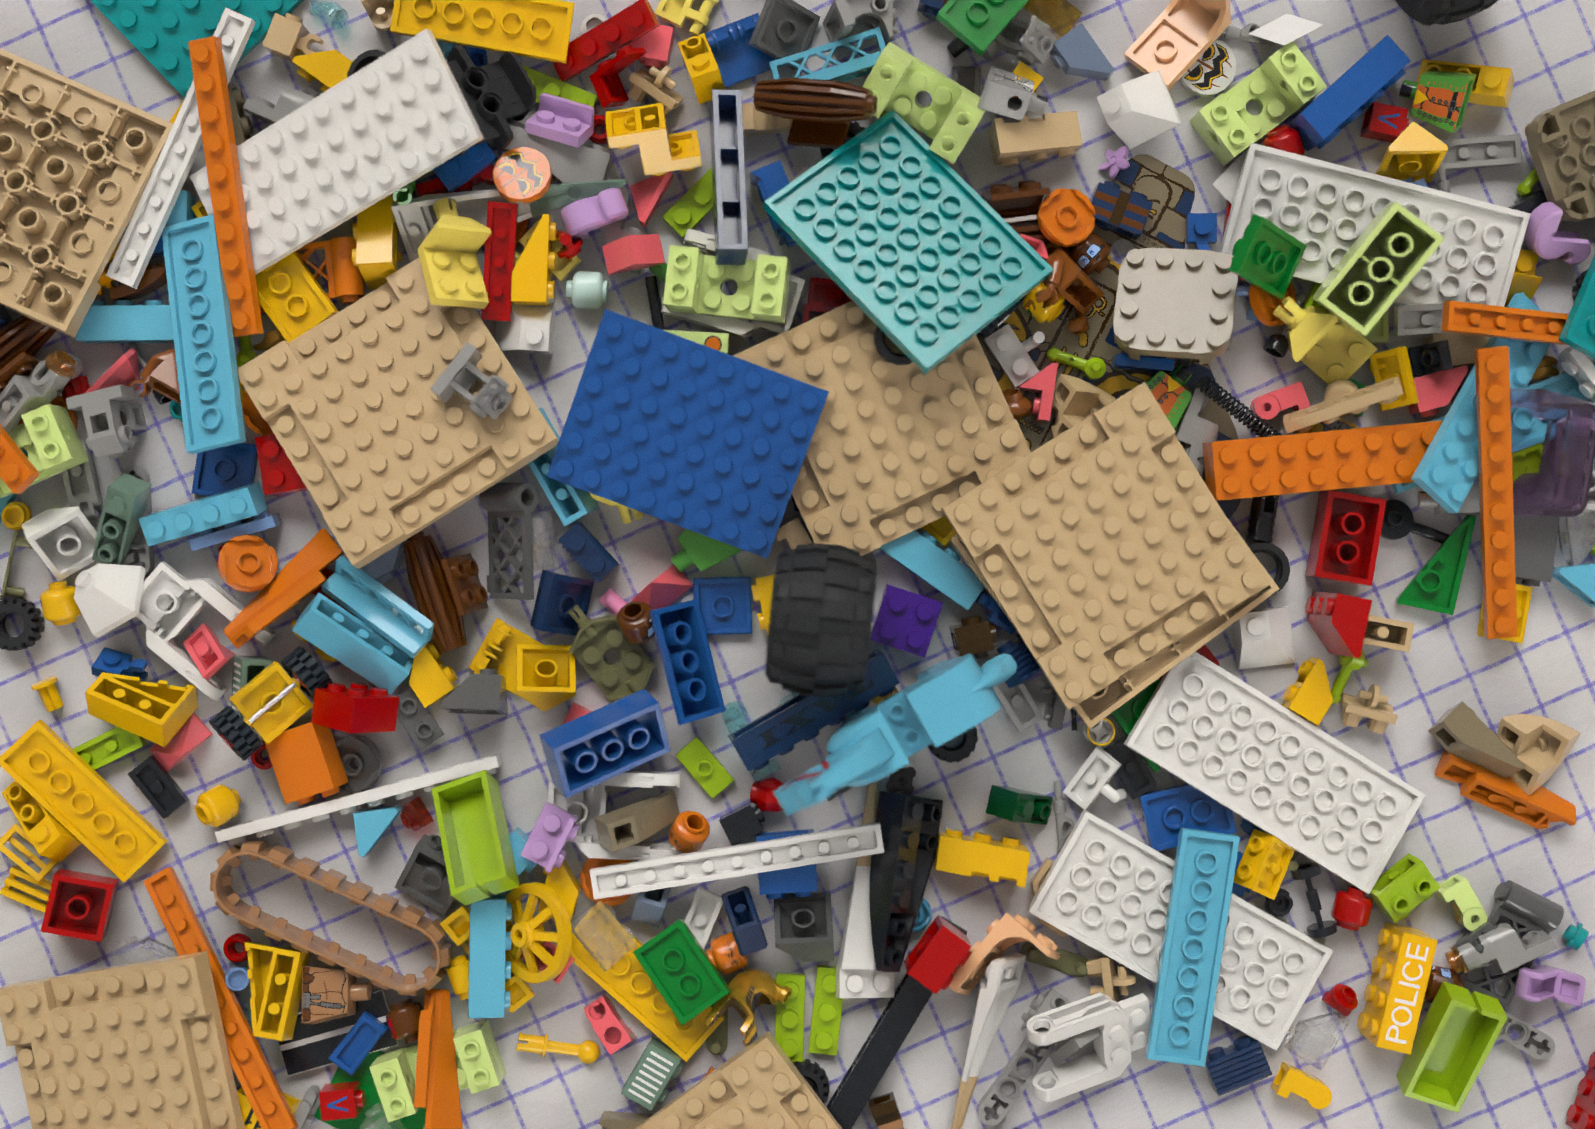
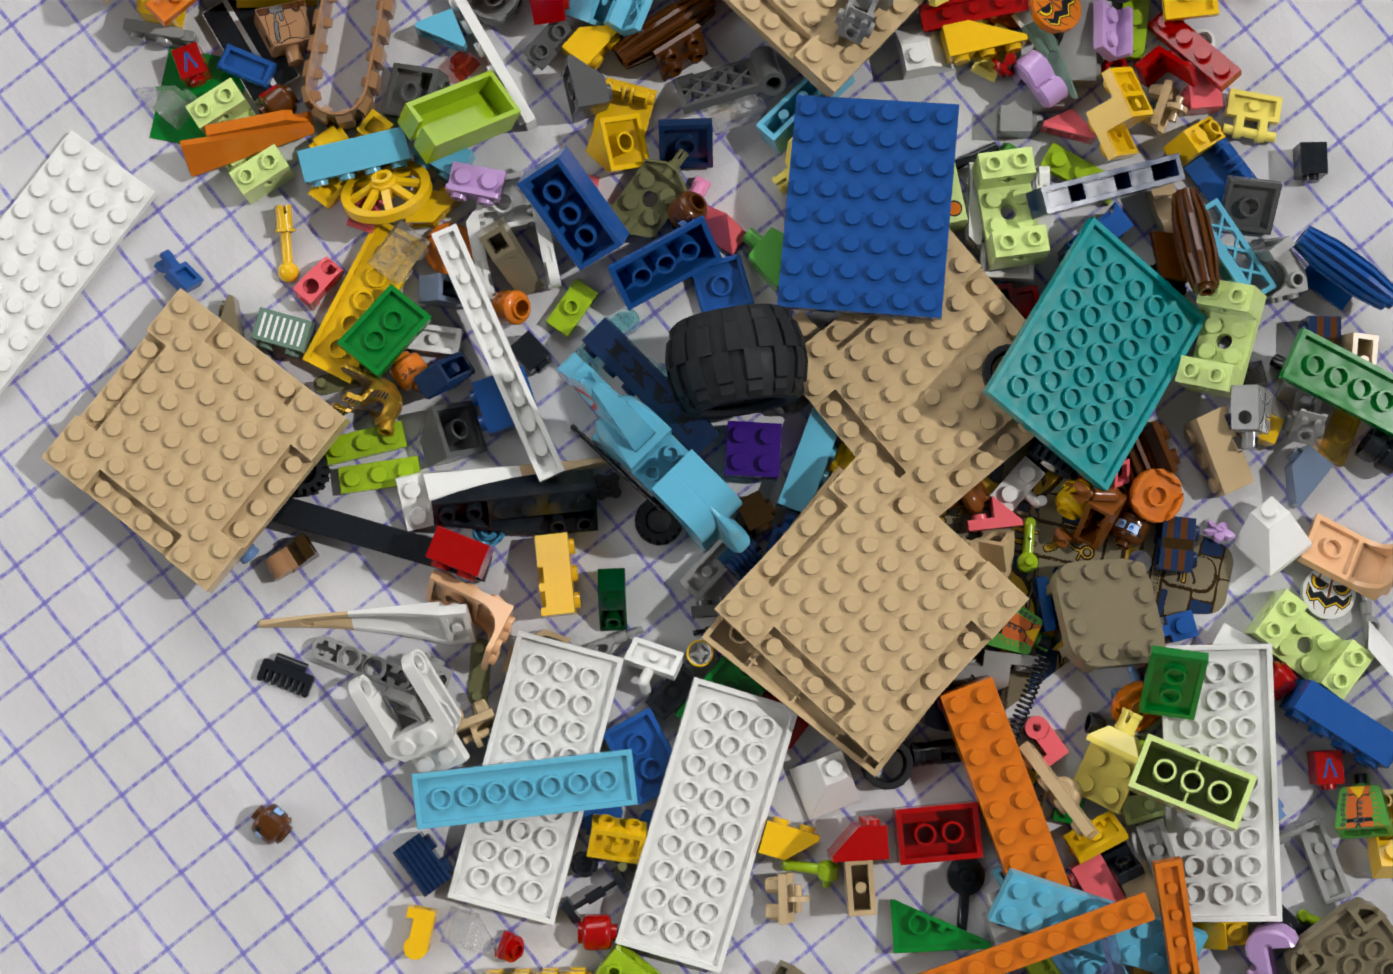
camera: 75 degrees right, 5 degrees down
(588, 290) = (970, 94): light aqua head -> none
(588, 552) = (737, 154): dark blue brick -> none
(633, 253) = (1014, 121): coral slope -> none
(763, 795) = (553, 375): red rock -> none
(1413, 155) = (1303, 798): yellow slope -> none

